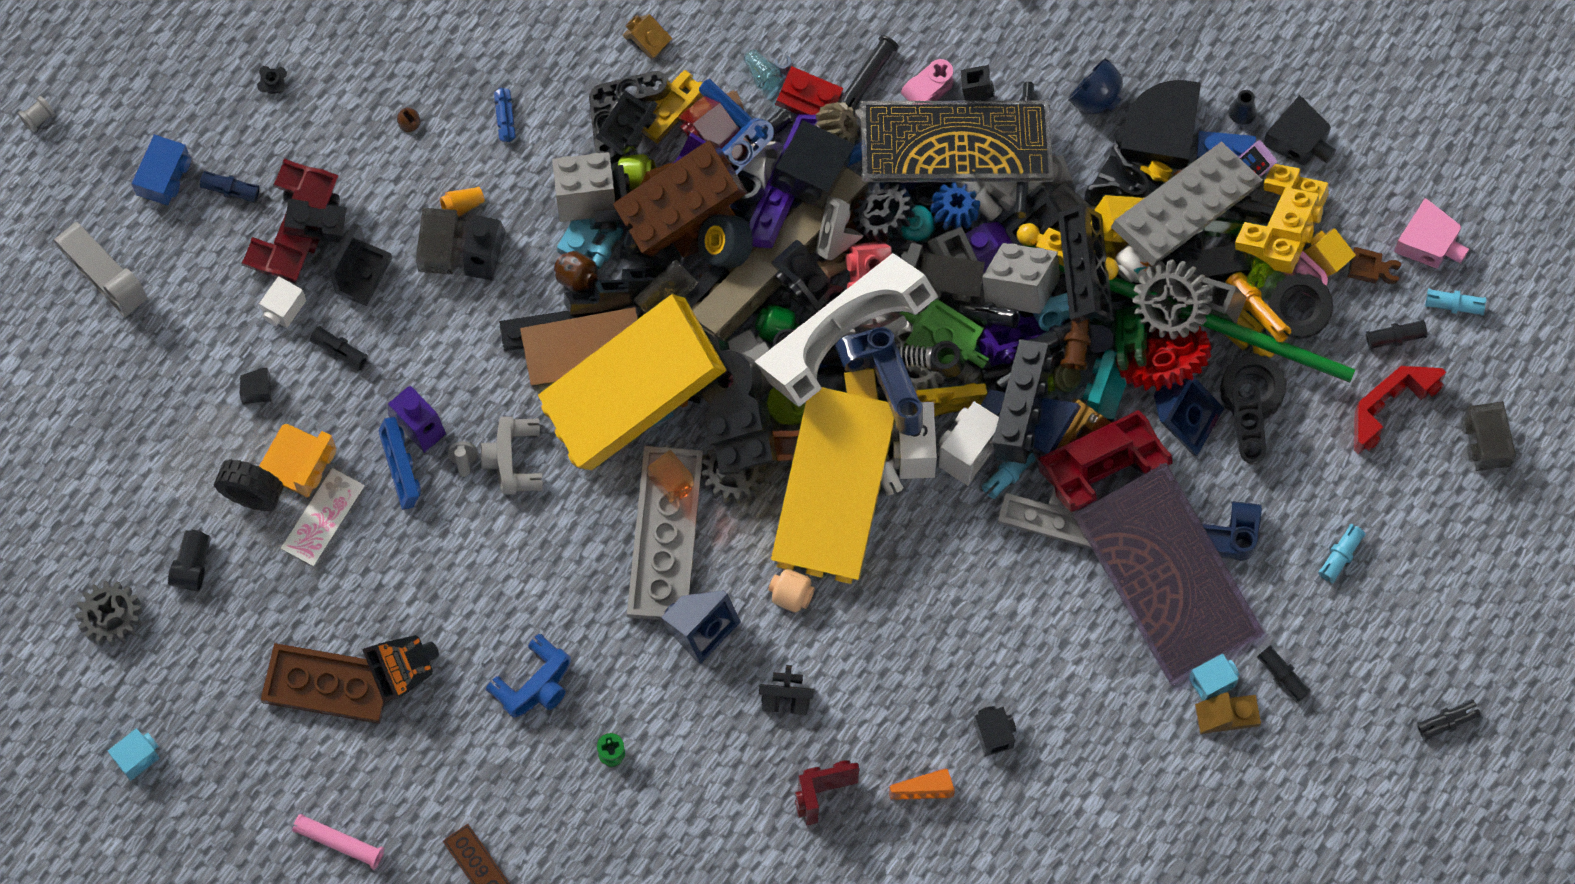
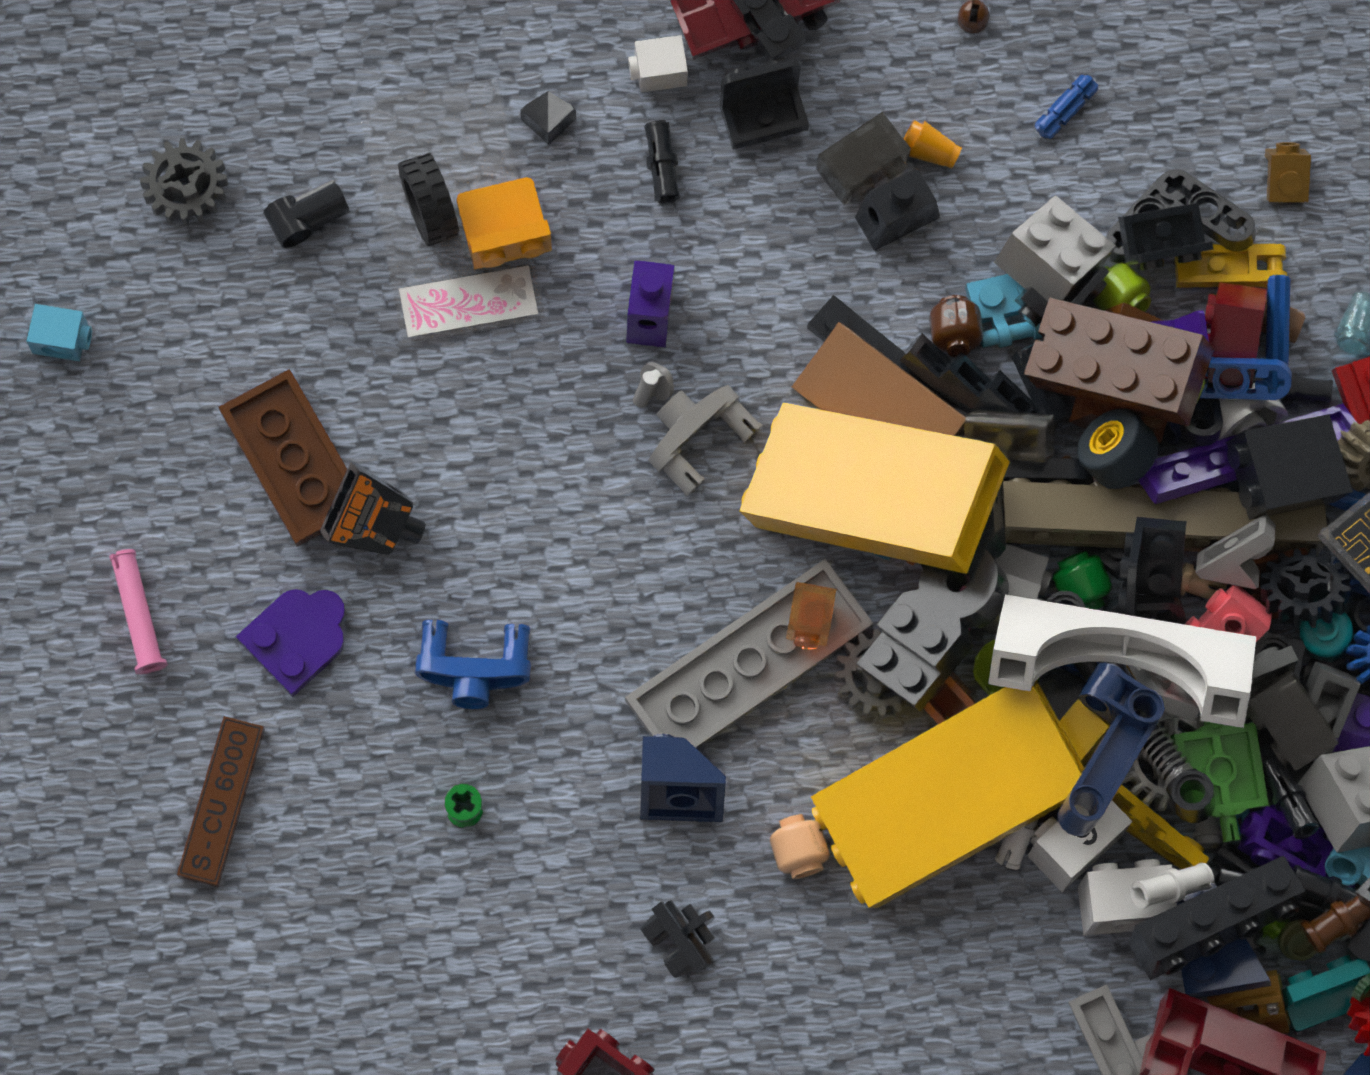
camera: 45 degrees right, 5 degrees up
(399, 463) = (590, 327): blue plate -> none
(431, 765) = (296, 636): none -> dark purple plate
(986, 408) = (1172, 885): none -> white pin
(1007, 474) = (1125, 968): medium azure pin -> none

